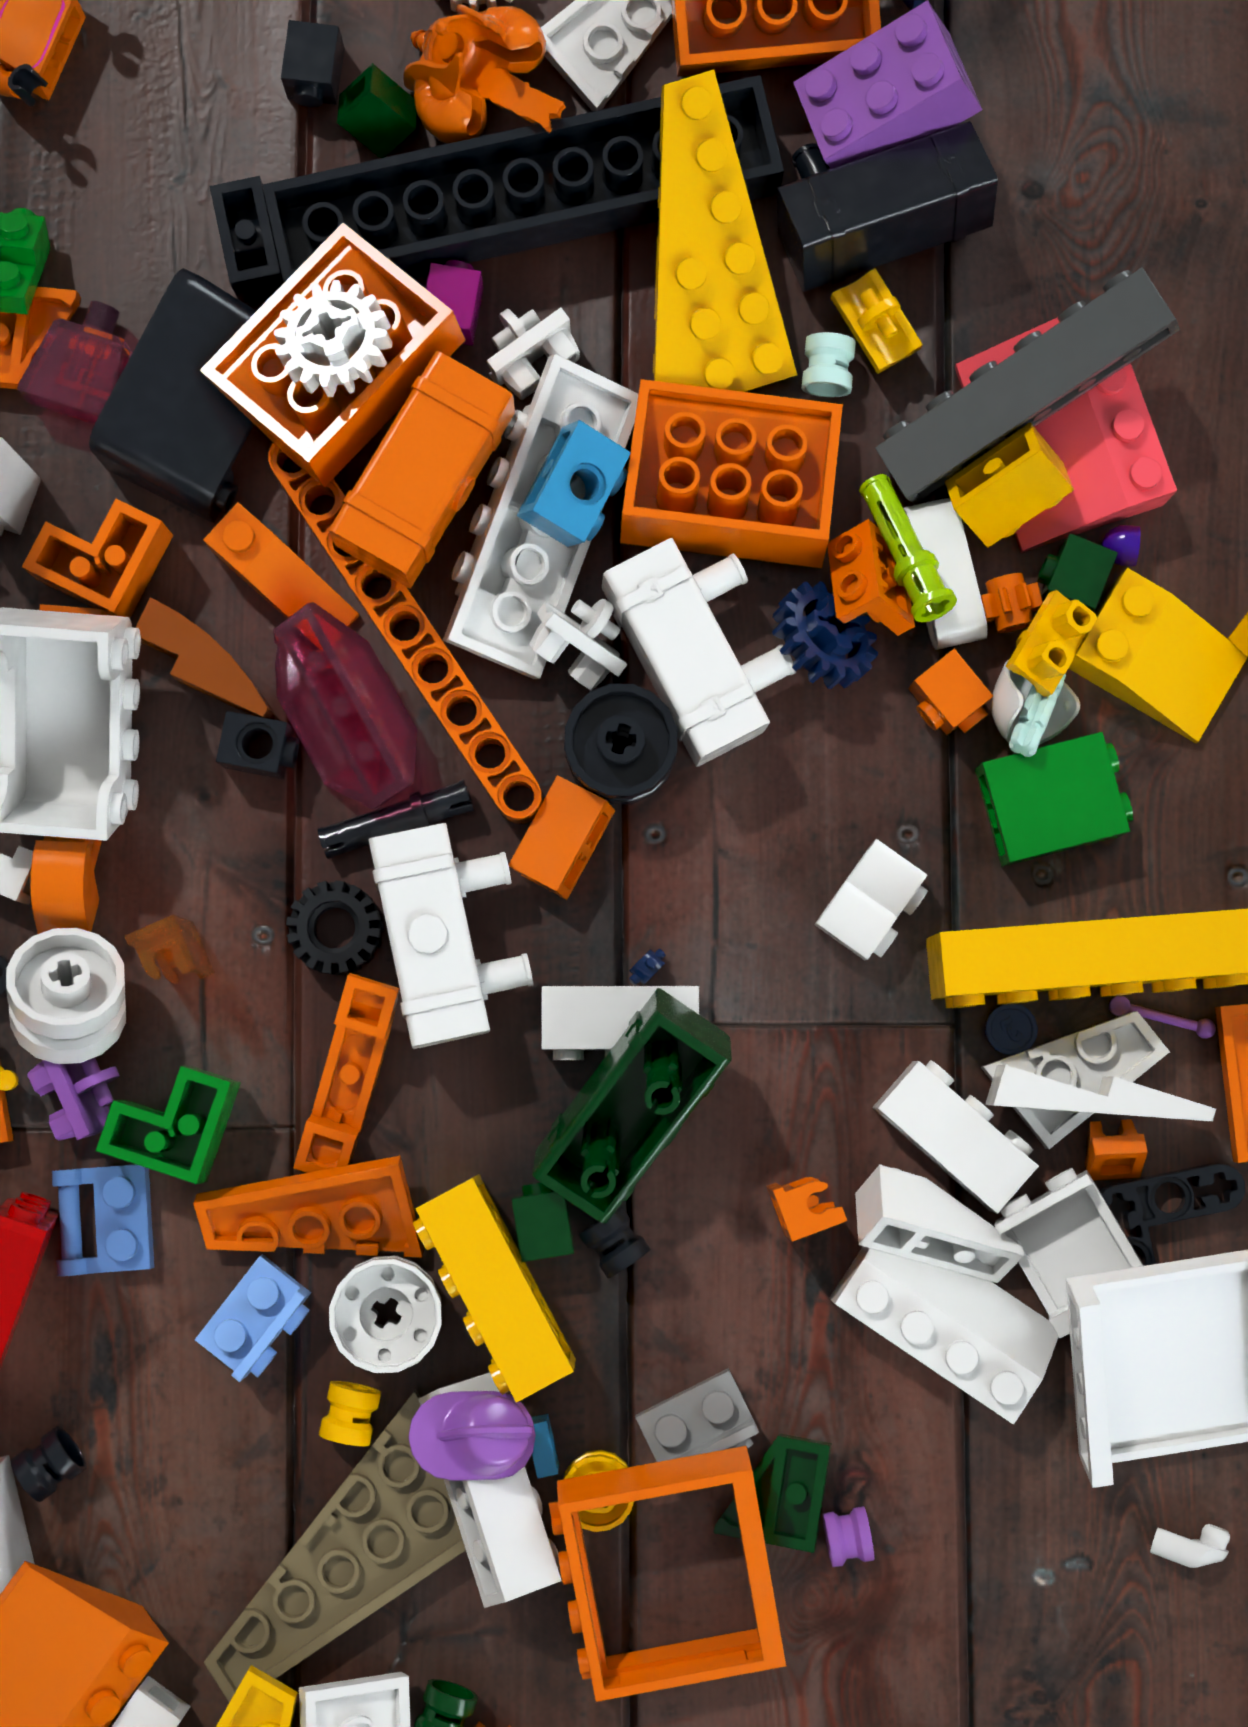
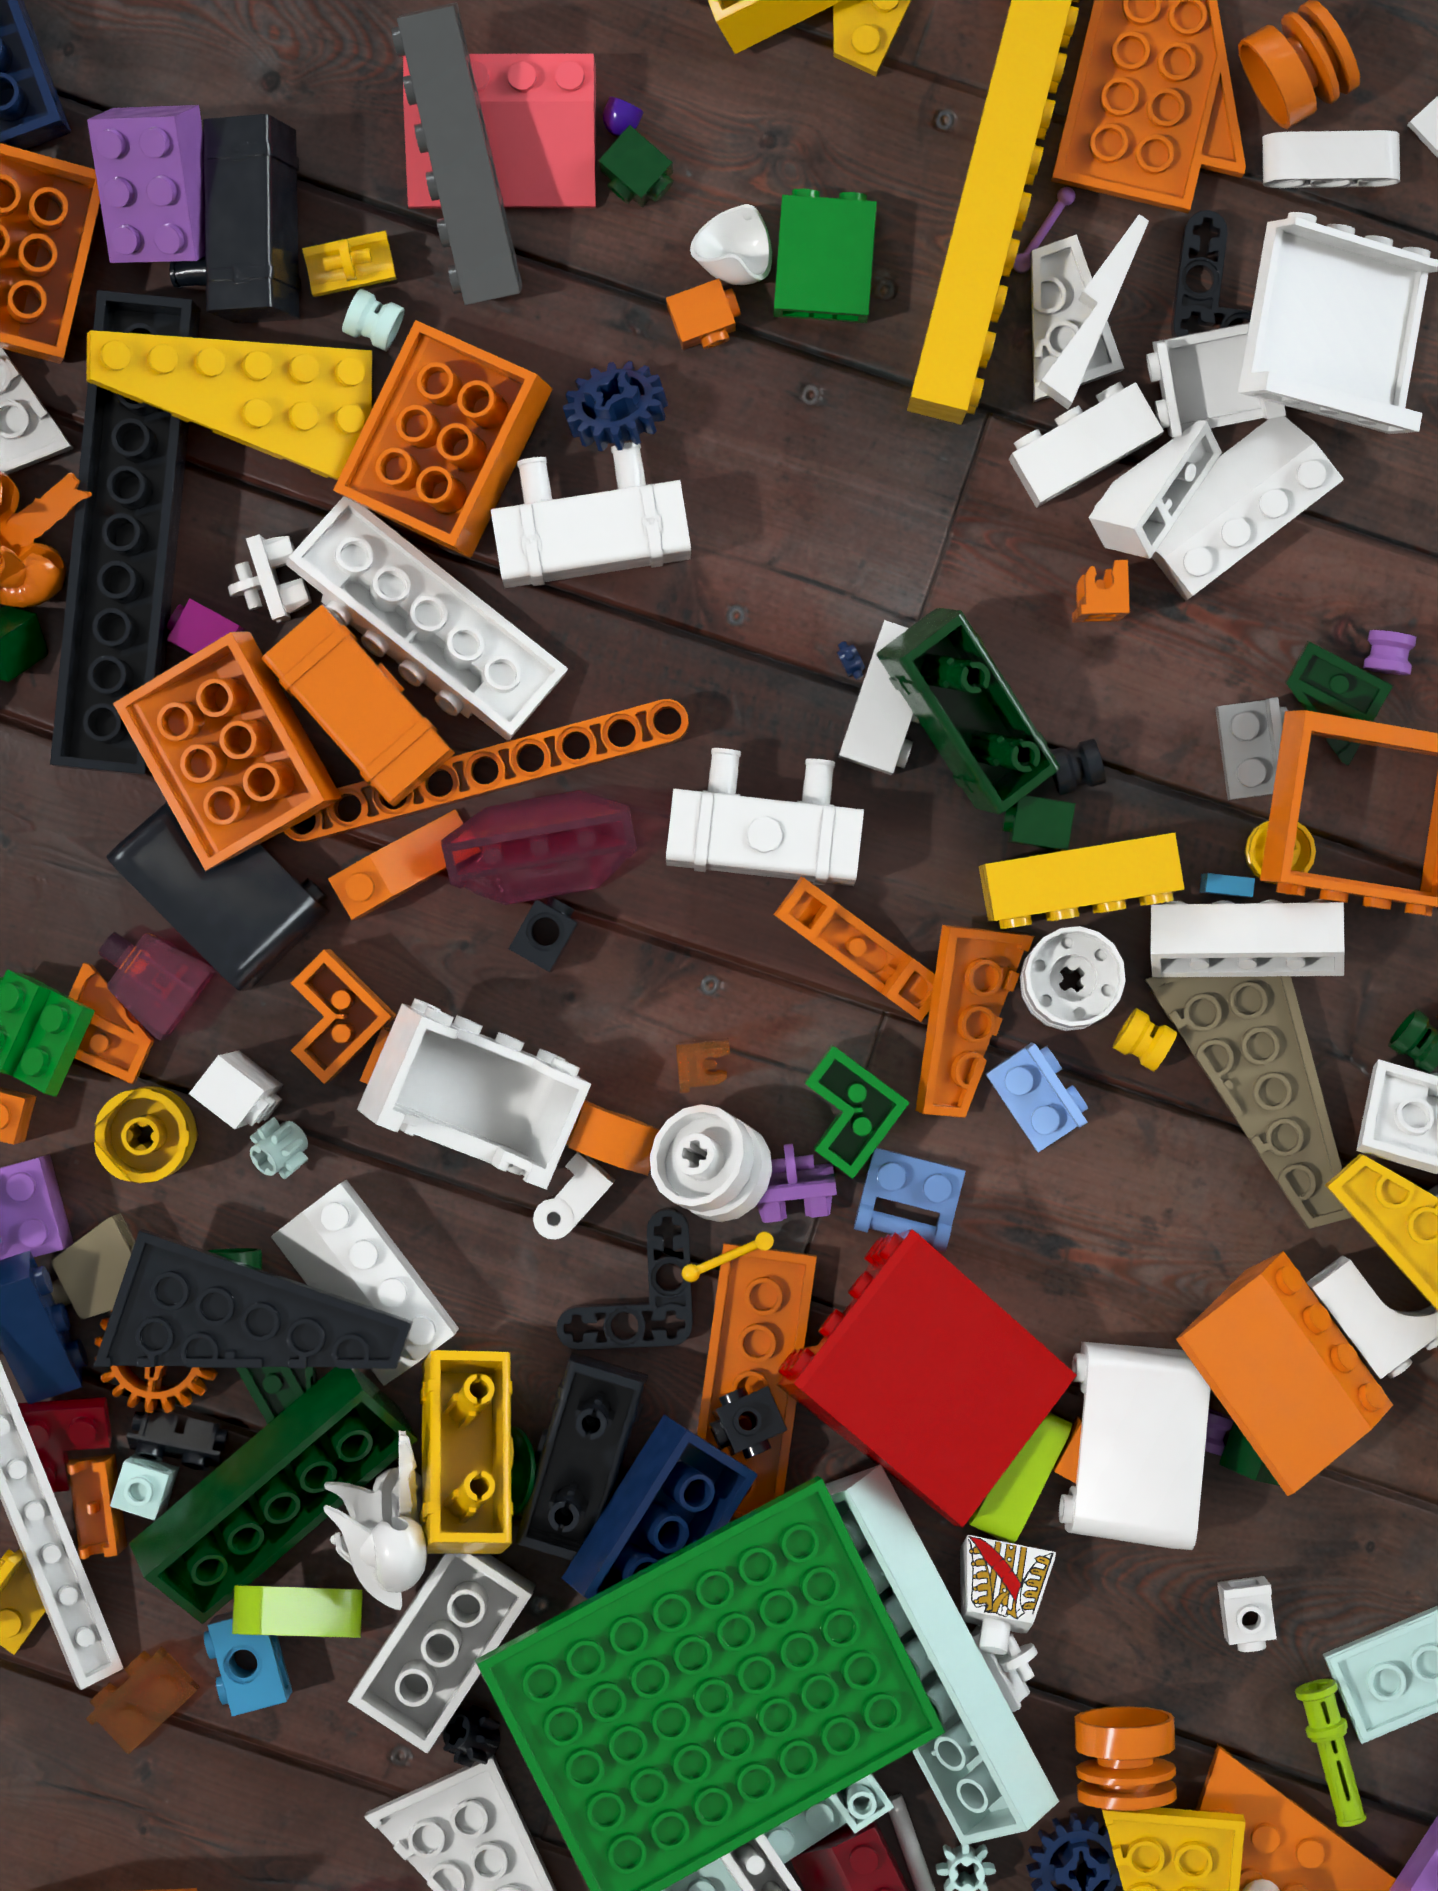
camera: 70 degrees left, 5 degrees up
(48, 1464) = (1101, 1308): black wheel -> none
(200, 660) = (453, 957): dark orange slope -> none
(247, 239) = (90, 793): black brick -> none
(303, 928) = (726, 947): black tyre -> none
(333, 338) = (223, 721): white gear -> none
(402, 816) = (649, 826): black pin -> none
(472, 1435) = (1199, 937): medium lavender piece -> none
(550, 501) = (415, 604): dark azure brick -> none
(562, 837) = (714, 696): orange hinge -> none
(596, 656) = (534, 635): white hips -> none
(627, 714) = (645, 589): black wheel -> none
(865, 580) = (579, 349): orange bracket -> none
(872, 900) = (860, 446): white brick -> none
(914, 566) = (583, 307): lime pin -> none
(943, 534) = (593, 282): white beam -> none
(1009, 485) = (539, 195): yellow brick -> none
(1011, 602) = (640, 234): orange gear -> none
(1011, 1029) = (1010, 364): dark blue piece -> none
(1033, 721) = (744, 244): light aqua axle -> none
(1051, 641) = (690, 211): yellow hips -> none
(1116, 1155) = (1148, 313): orange tile -> none
(1158, 656) = (729, 122): yellow slope -> none

